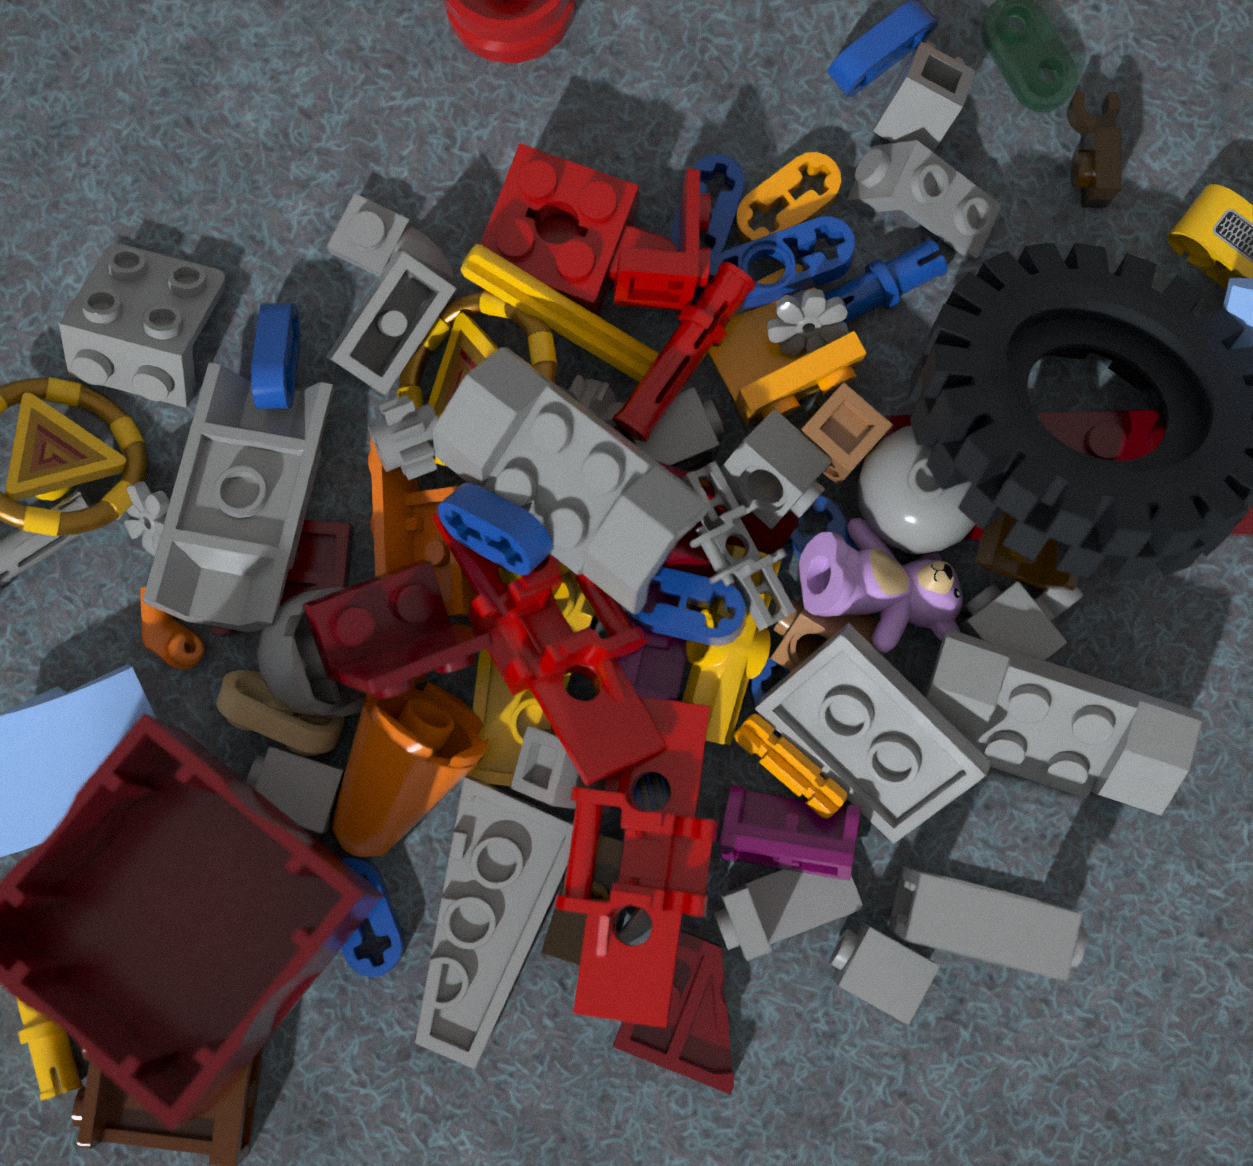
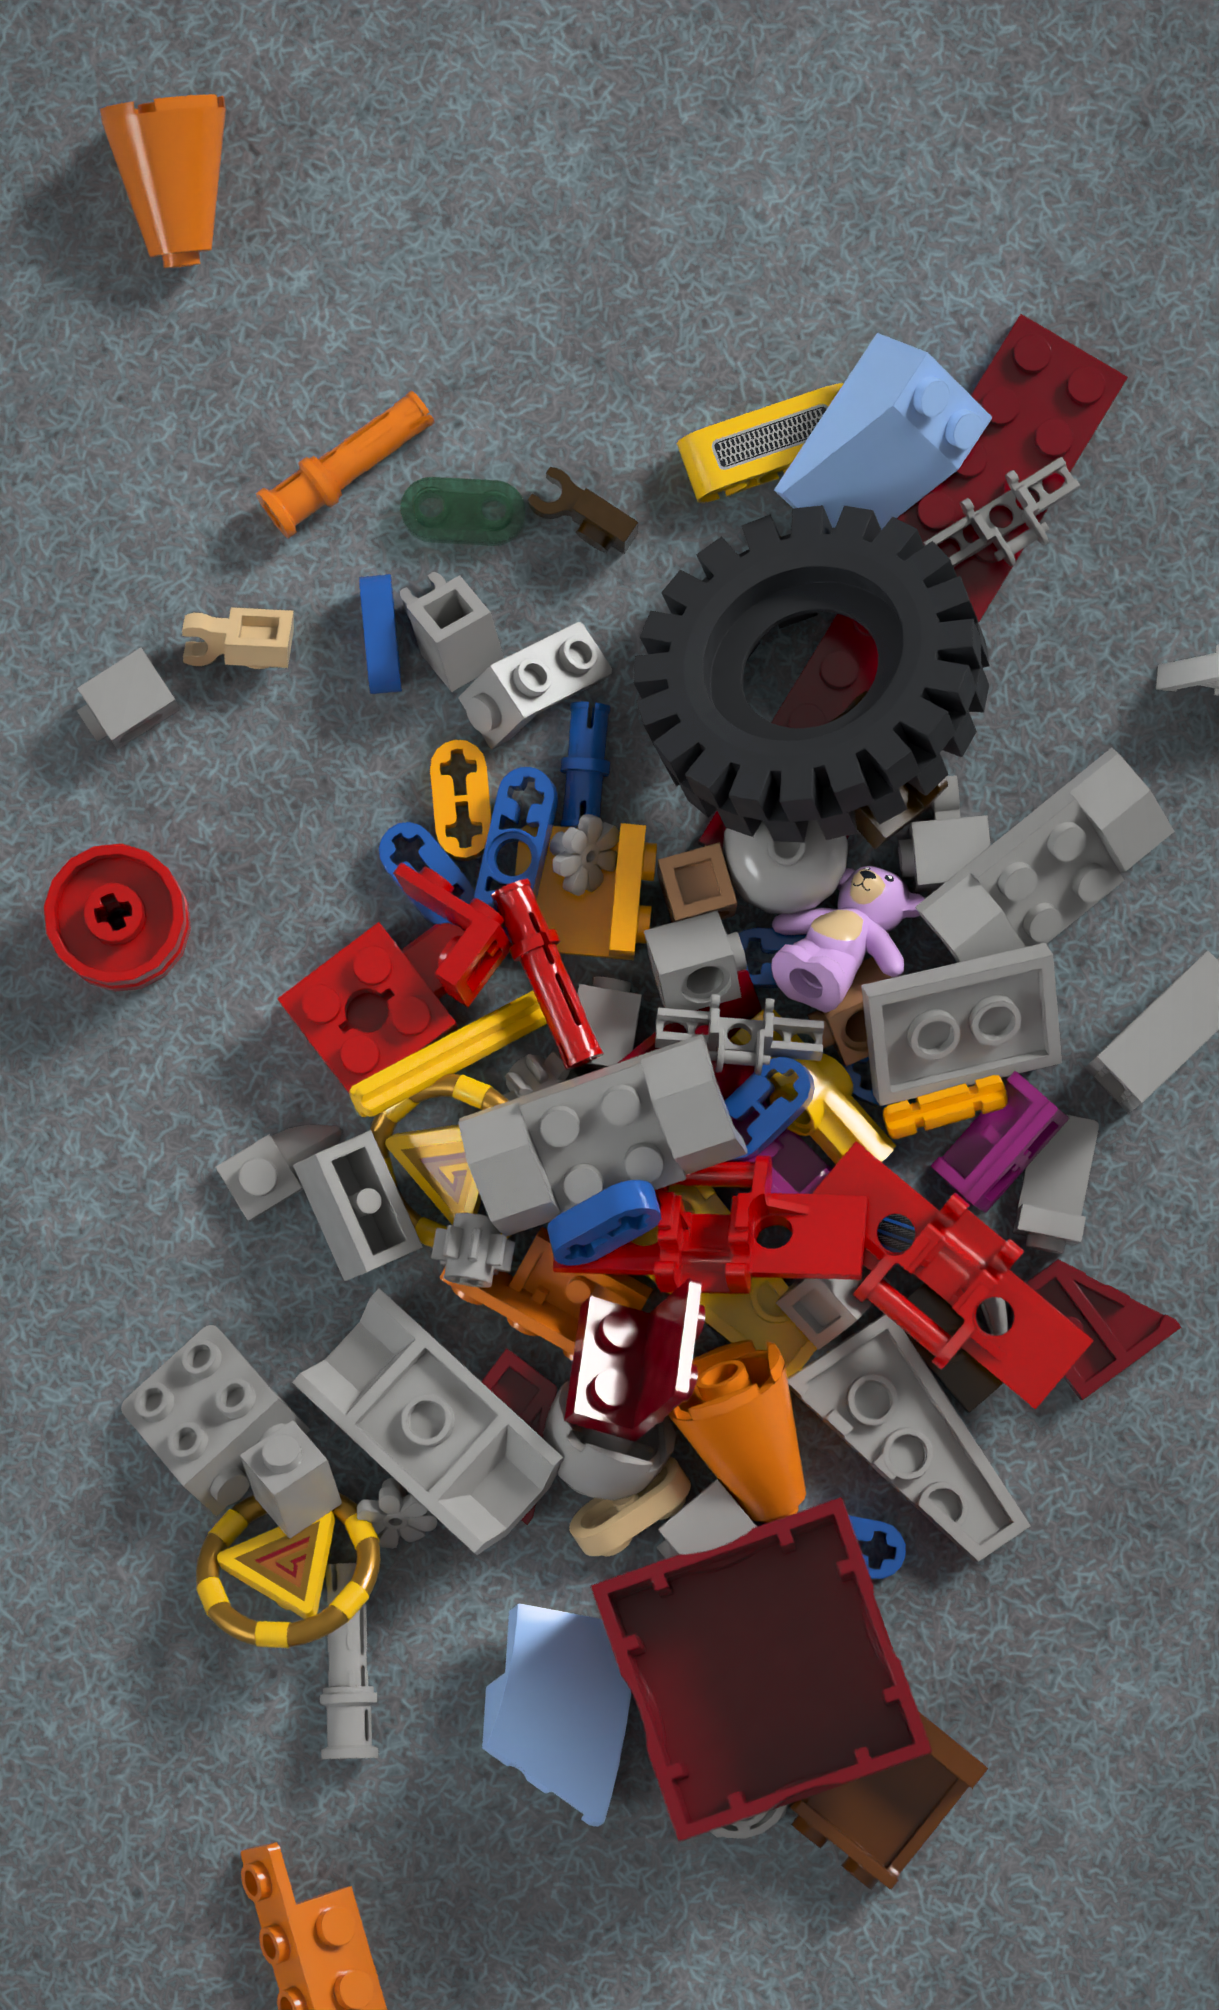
camera: 65 degrees left, 0 degrees up
(49, 1052) = (774, 1870): yellow pin -> none
(124, 411) = (291, 1479): none -> light grey brick
(169, 638) = (501, 1567): orange arm -> none
(275, 356) = (321, 1321): blue beam -> none
(882, 971) = (1158, 1139): light grey brick -> none

